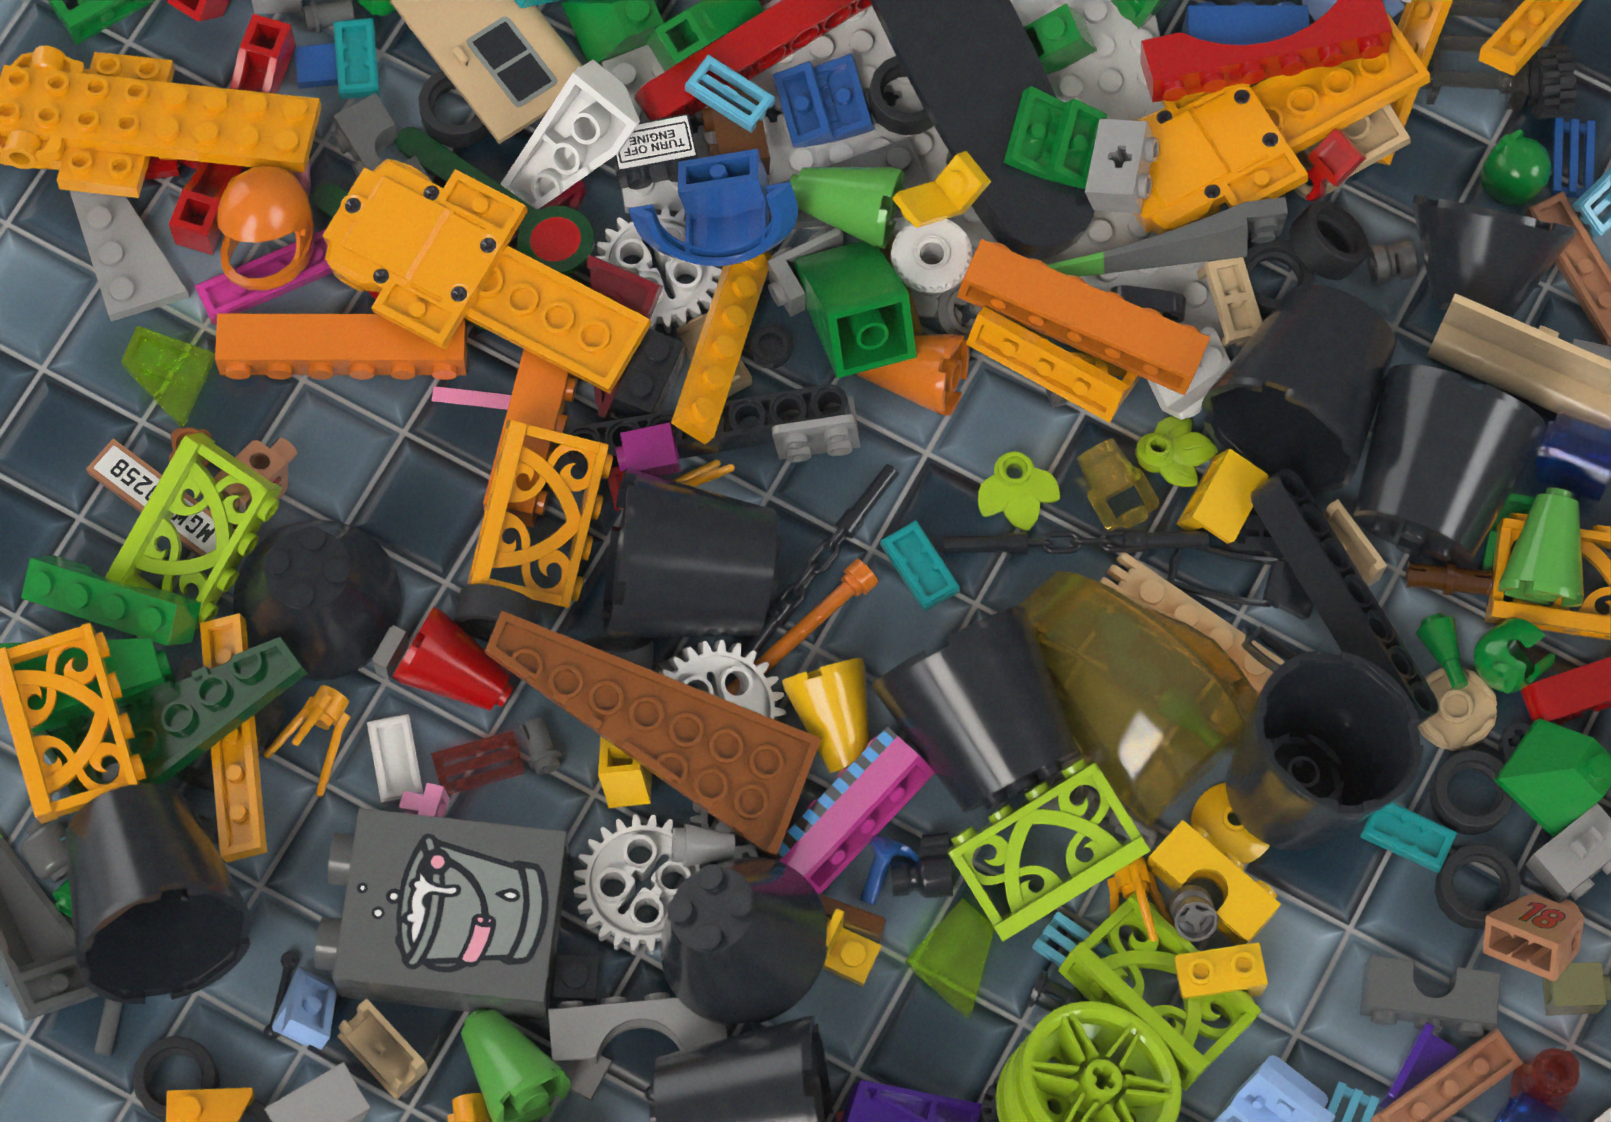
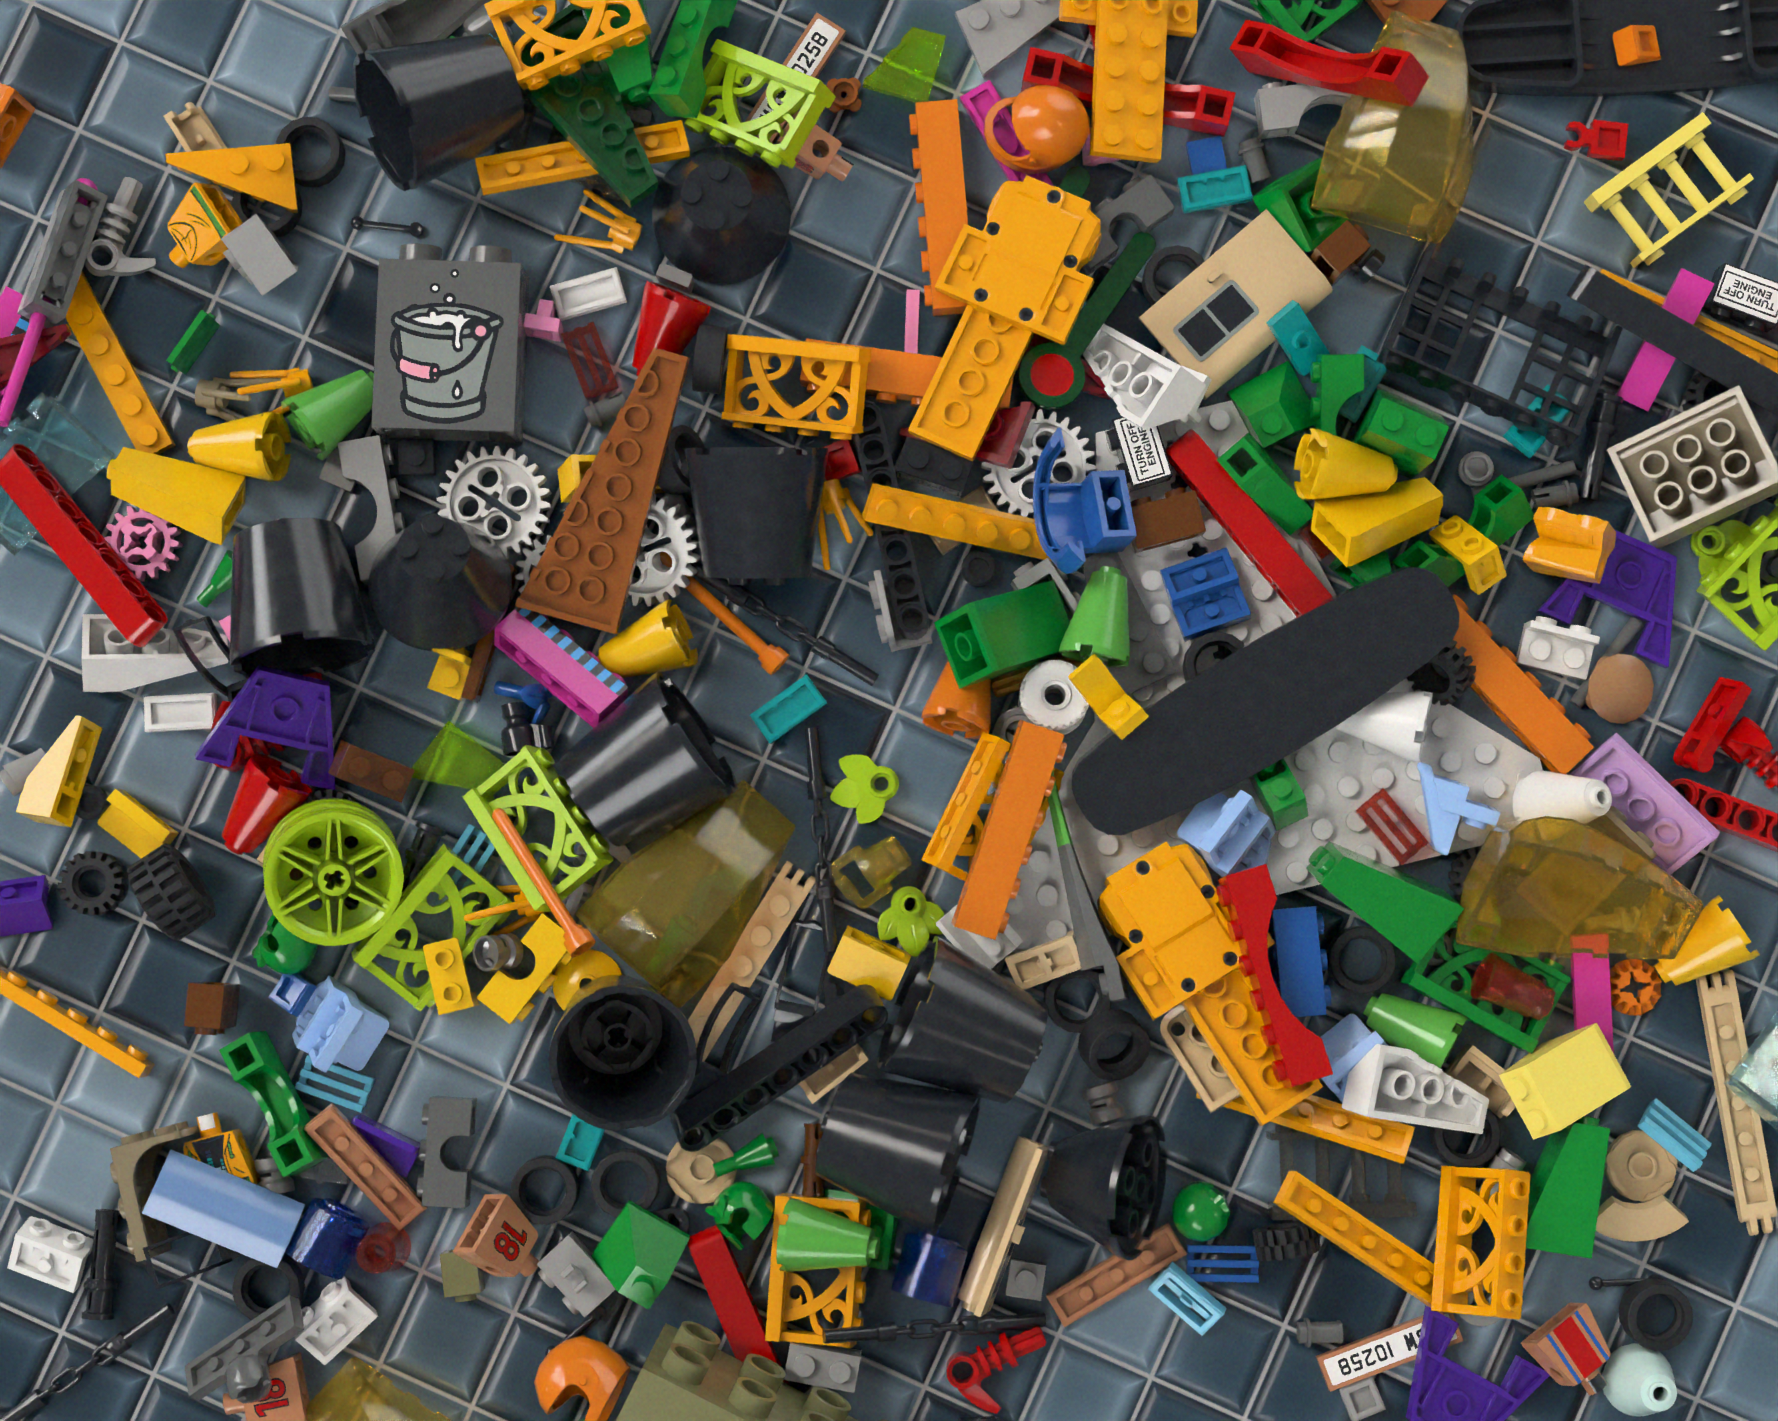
camera: 90 degrees right, 15 degrees up
(307, 1010) = (366, 244): light blue slope -> none
(382, 1050) = (346, 311): tan hinge -> none
(649, 450) = (852, 469): magenta brick -> none
(700, 845) = (520, 544): light grey cone -> none
(722, 106) = (1177, 535): medium azure tile -> none
(964, 1048) = (371, 771): none -> reddish brown piece
(1053, 138) = (1172, 795): green slope -> none
(1103, 85) = (1228, 833): none -> light blue piece
(1121, 166) = (1166, 847): light grey brick -> none
(1168, 303) = (1035, 887): black beam -> none
(1185, 797) = (576, 937): none -> orange piece
(1333, 162) = (1180, 1042): red plate -> none

